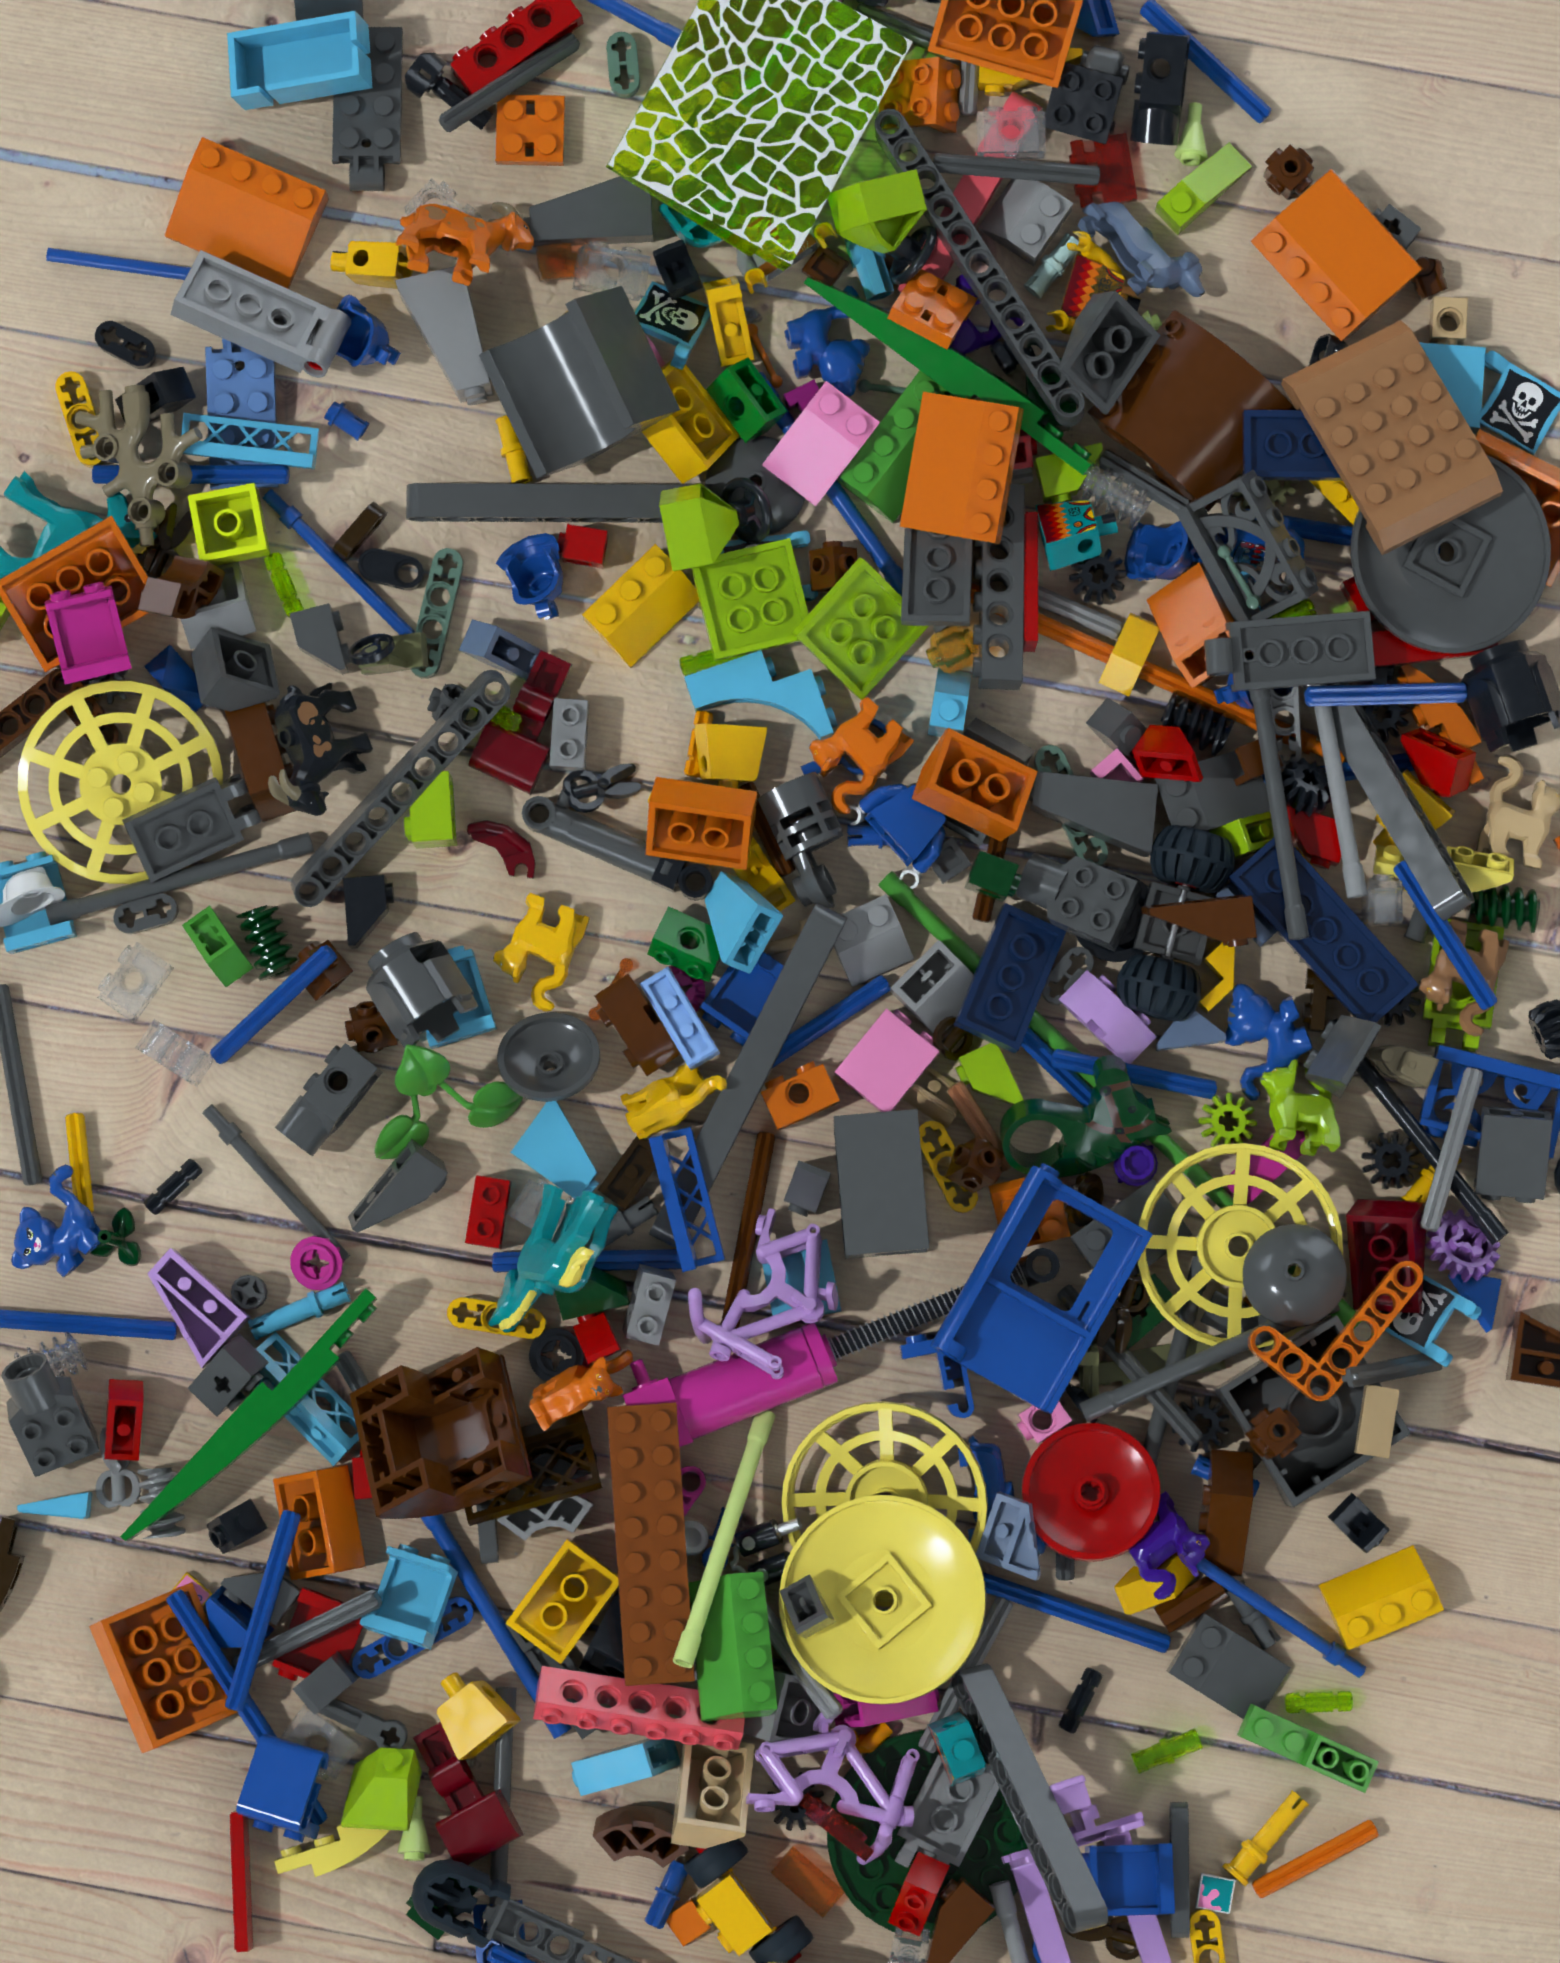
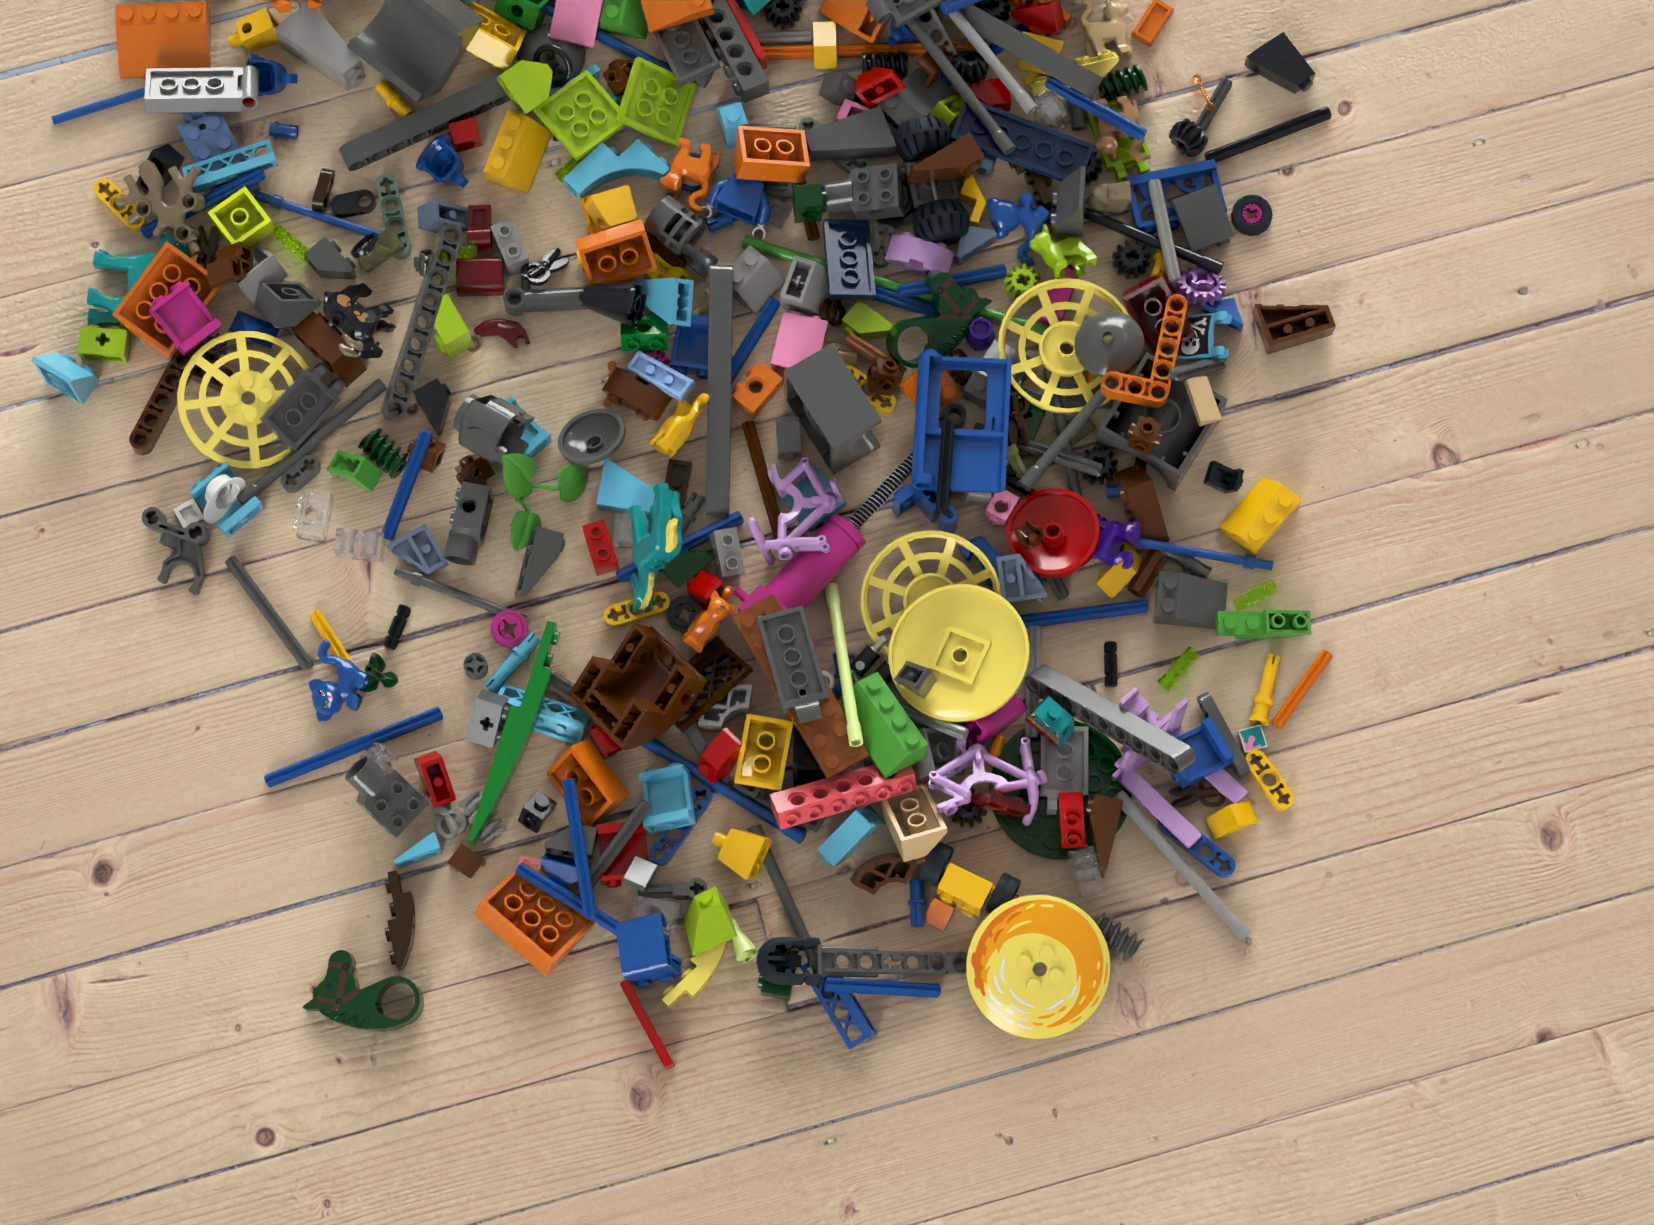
camera: 30 degrees left, 10 degrees down
(111, 1551) = (466, 861): none -> reddish brown panel
(130, 338) = (126, 151): black beam -> none
(198, 1306) = (446, 686): lavender wedge -> none
(251, 1097) = (419, 550): none -> sand blue wing
(477, 1821) = (776, 914): dark red plate -> none
(503, 1577) = (719, 756): none -> red slope
(546, 942) = (555, 374): yellow animal -> none
(654, 1515) = (794, 662): none -> dark grey hinge
(667, 889) = (616, 300): none -> black cone
(674, 1203) = (710, 480): blue fence -> none
(807, 1881) = (1000, 854): clear orange tile -> none
(952, 649) = (717, 90): clear yellow head -> none
(989, 1339) = (945, 464): none -> black axle
(1056, 1482) = (1029, 534): none -> reddish brown arm

